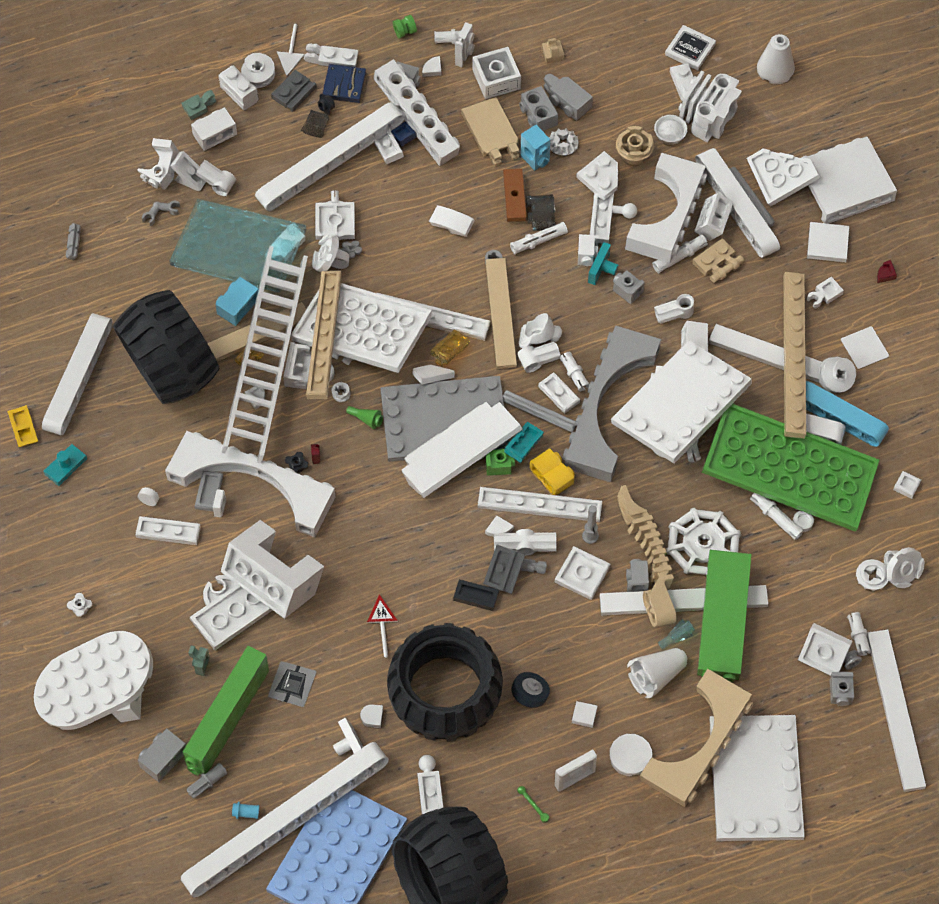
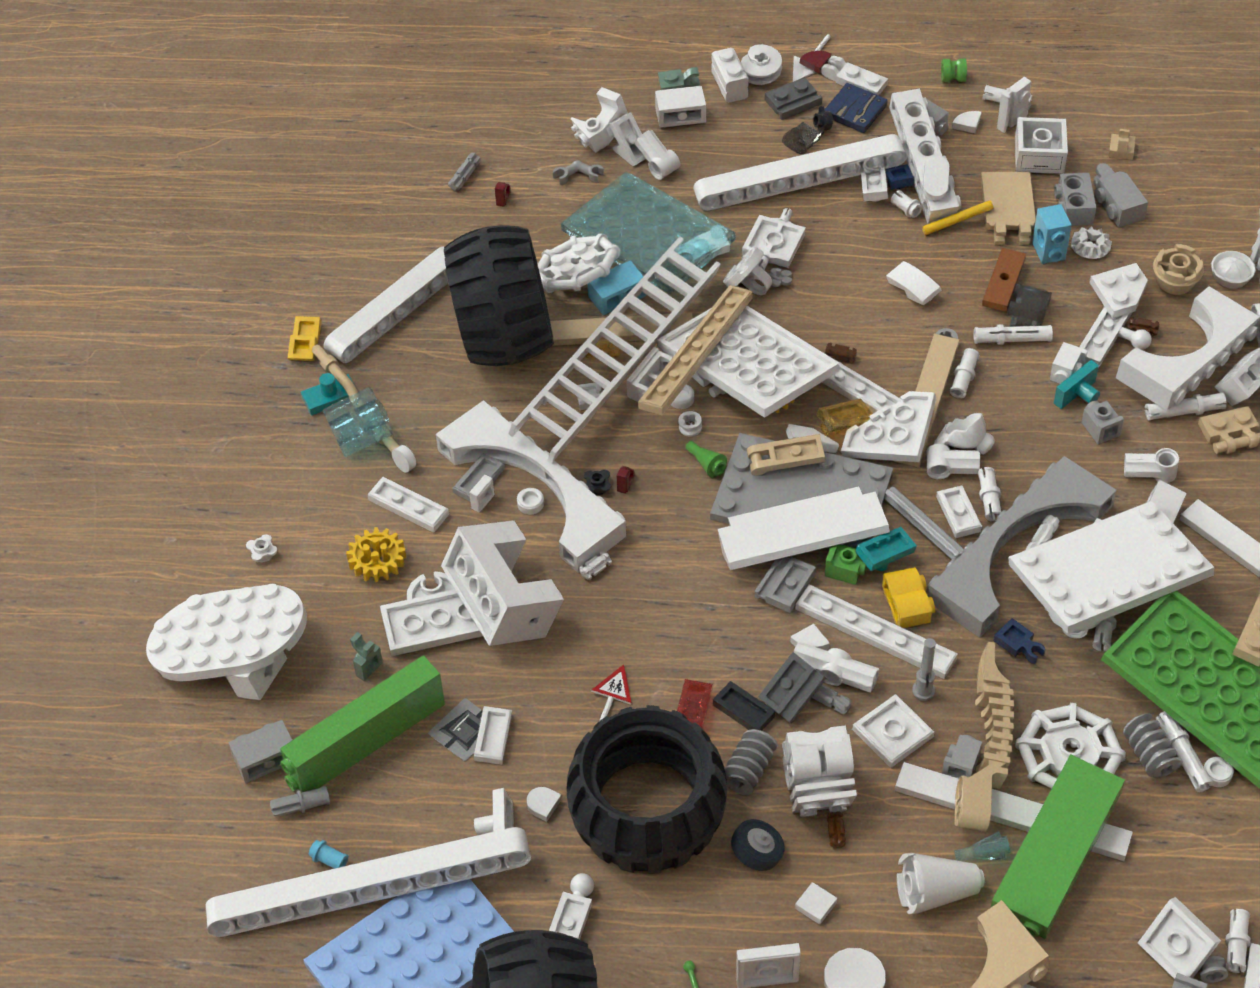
camera: 25 degrees right, 10 degrees down
(56, 442) = (331, 366): none -> tan bar
(103, 481) = (358, 422): none -> clear light blue plate
(112, 250) = (502, 193): none -> dark red tile
(154, 584) = (360, 553): none -> yellow gear
(211, 298) = (577, 262): none -> white plate
(255, 495) = (530, 501): none -> white tile
(296, 51) = (815, 60): none -> dark red tile
(315, 681) = (493, 735): none -> white tile
(325, 528) = (595, 565): none -> white piece
(418, 155) = (911, 207): none -> white pin
(423, 296) = (841, 352): none -> reddish brown piece
(423, 394) = (786, 454): none -> tan plate
(435, 130) = (935, 178): none -> white tile
(442, 606) = (695, 701): none -> clear red plate
(460, 154) = (957, 217): none -> yellow bar
(464, 492) = (785, 582): none -> light grey plate
(489, 347) = (893, 431): none -> white plate
(498, 632) = (749, 761): none -> light grey piece
(518, 282) = (964, 373): none -> white pin
(550, 622) = (819, 770): none -> white piece
(575, 658) = (836, 829): none -> reddish brown piece
(623, 388) = (1045, 531): none -> white axle
(625, 198) = (1143, 324): none -> reddish brown piece
(637, 475) = (1017, 639): none -> dark blue plate
(755, 521) = (1150, 746): none -> light grey piece

